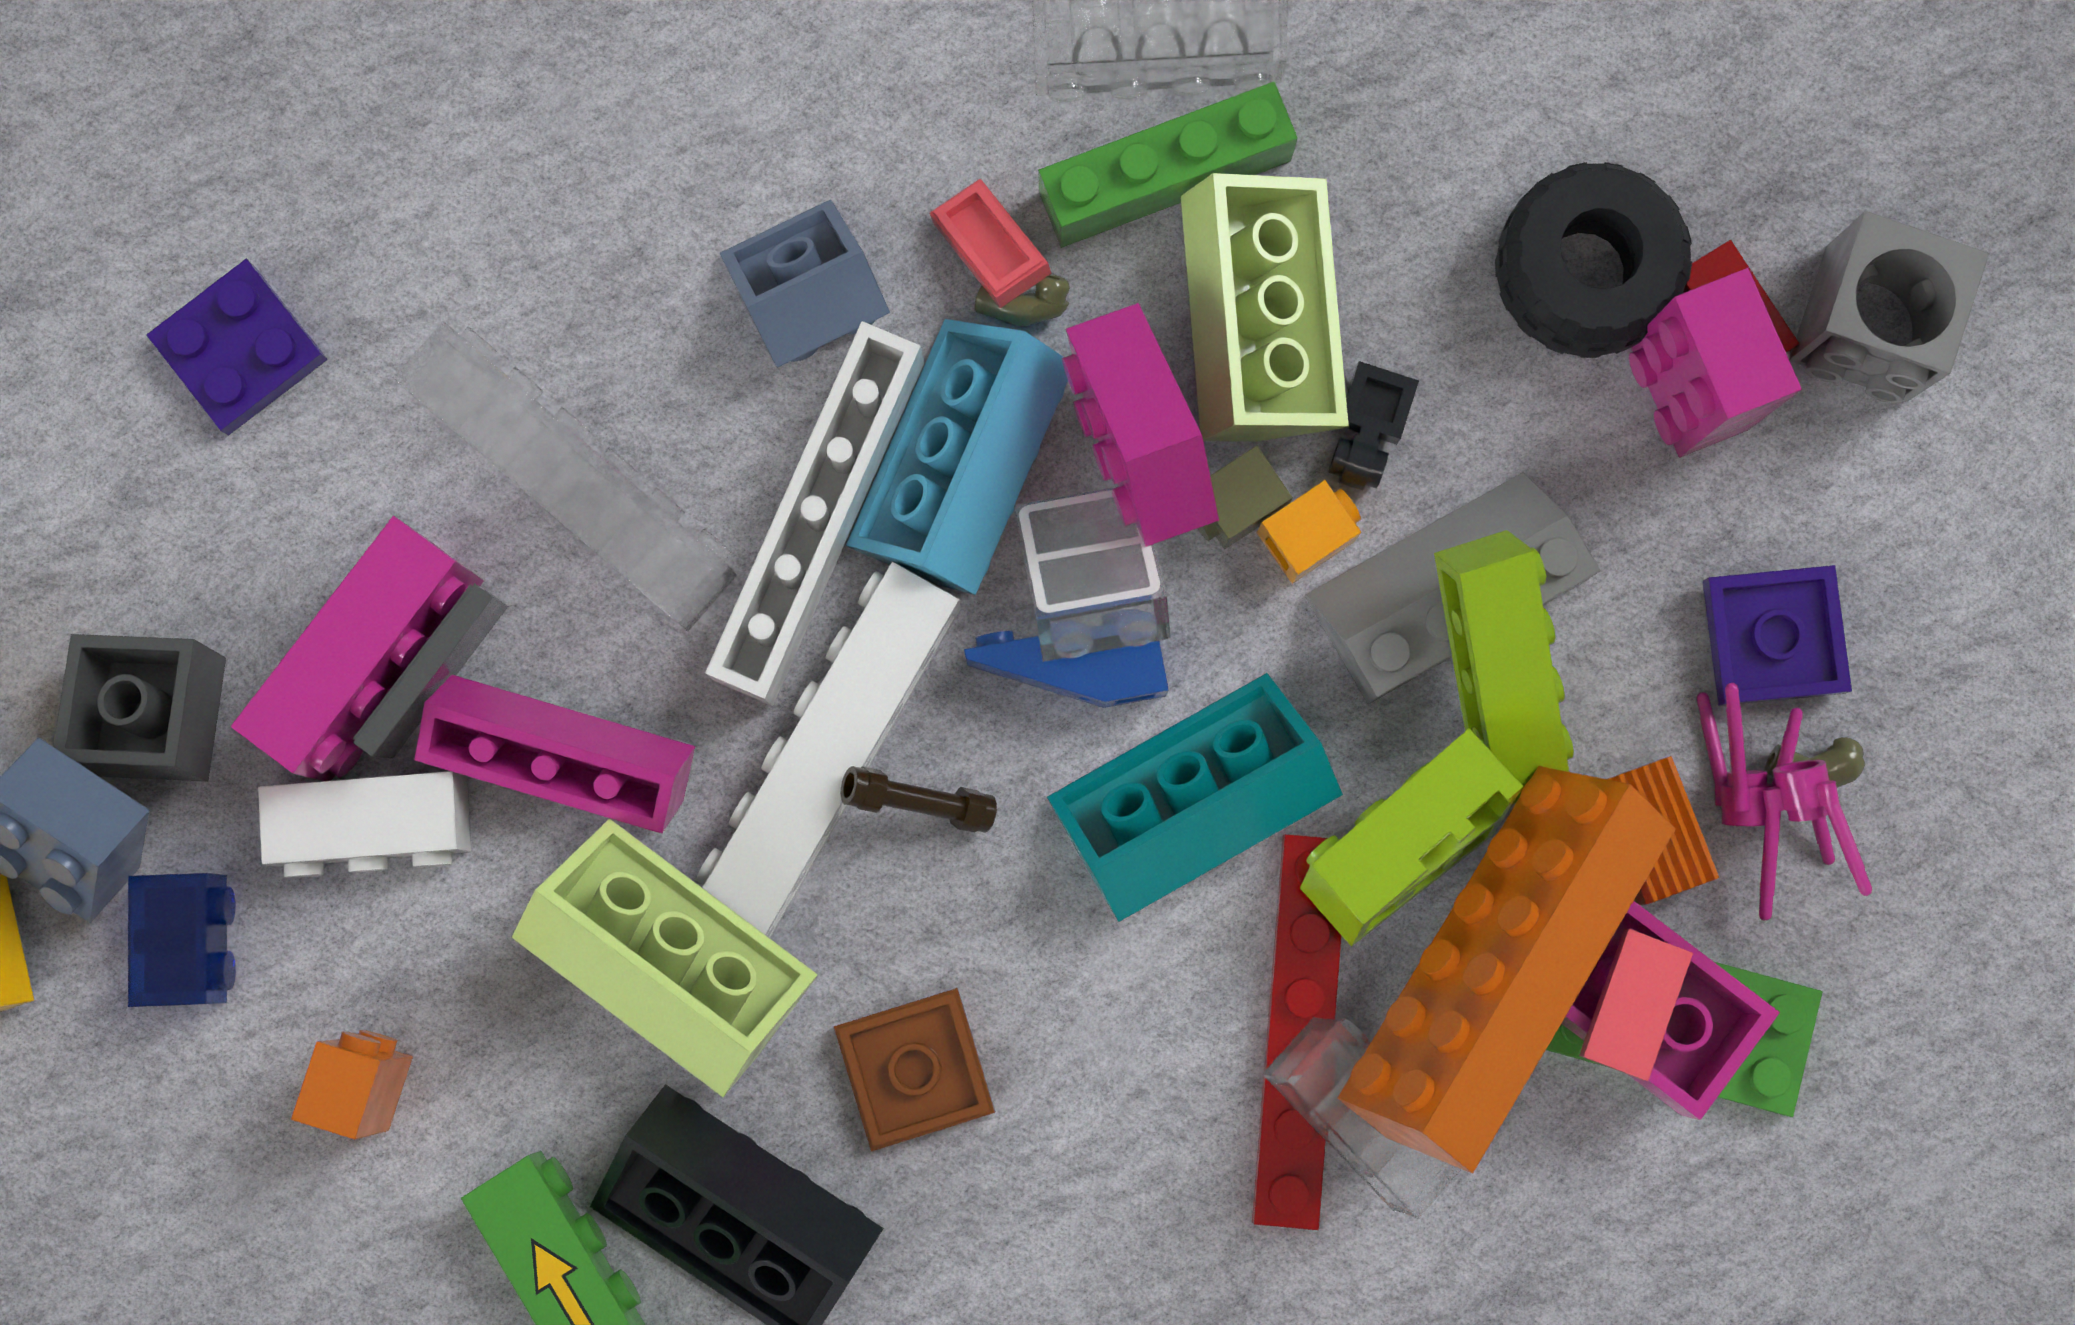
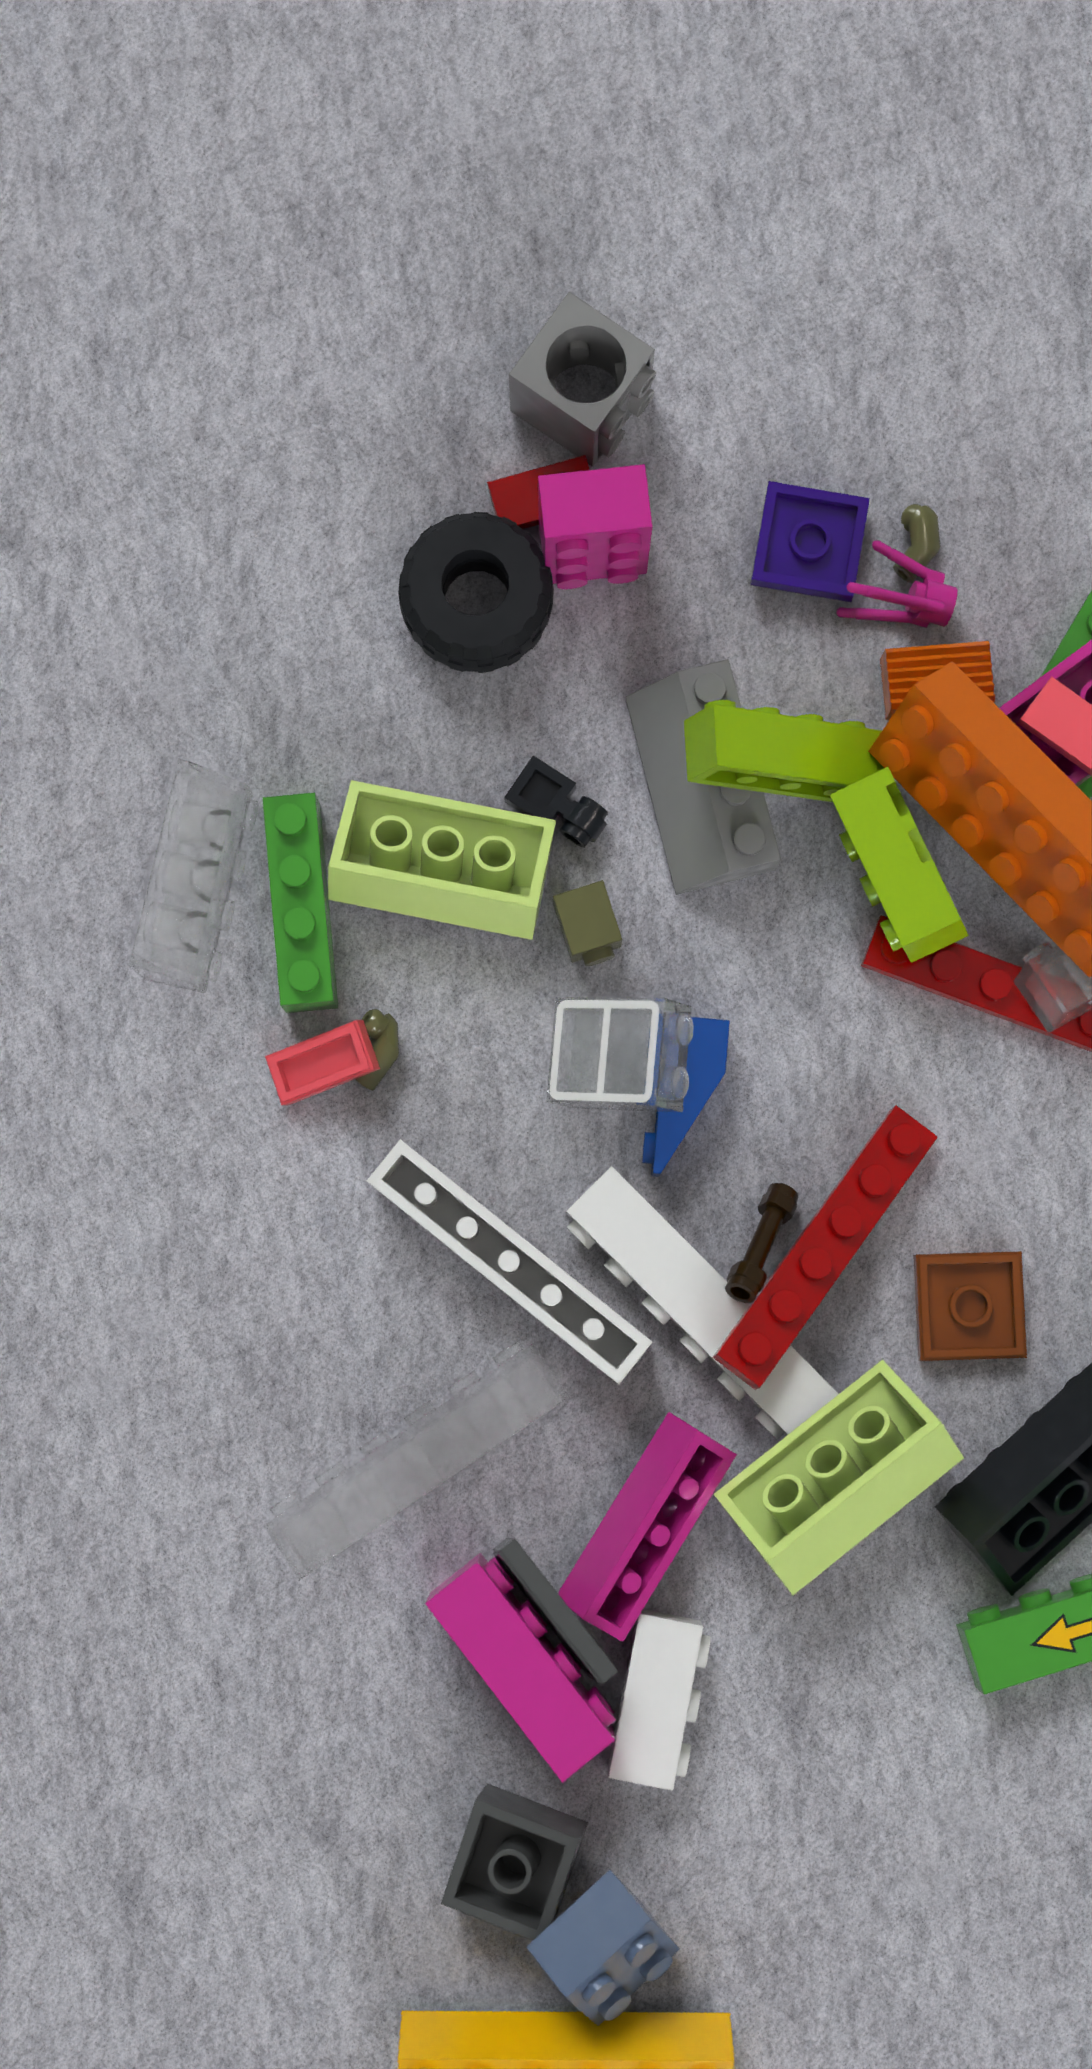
camera: 75 degrees left, 0 degrees up
(179, 939) = (713, 1877): clear blue brick -> none
(236, 347) = (227, 1709): dark purple plate -> none
(353, 1085) = (872, 1759): orange brick -> none
(805, 283) = (311, 1221): sand blue slope -> none
(933, 875) = (825, 1248): none -> red plate
(961, 454) = (489, 1133): medium azure slope -> none
(1141, 425) = (517, 981): dark pink brick -> none
(1195, 796) = (814, 1024): teal slope -> none
(1310, 530) = (629, 873): light orange brick -> none
(1806, 795) = (945, 556): dark pink plant -> none

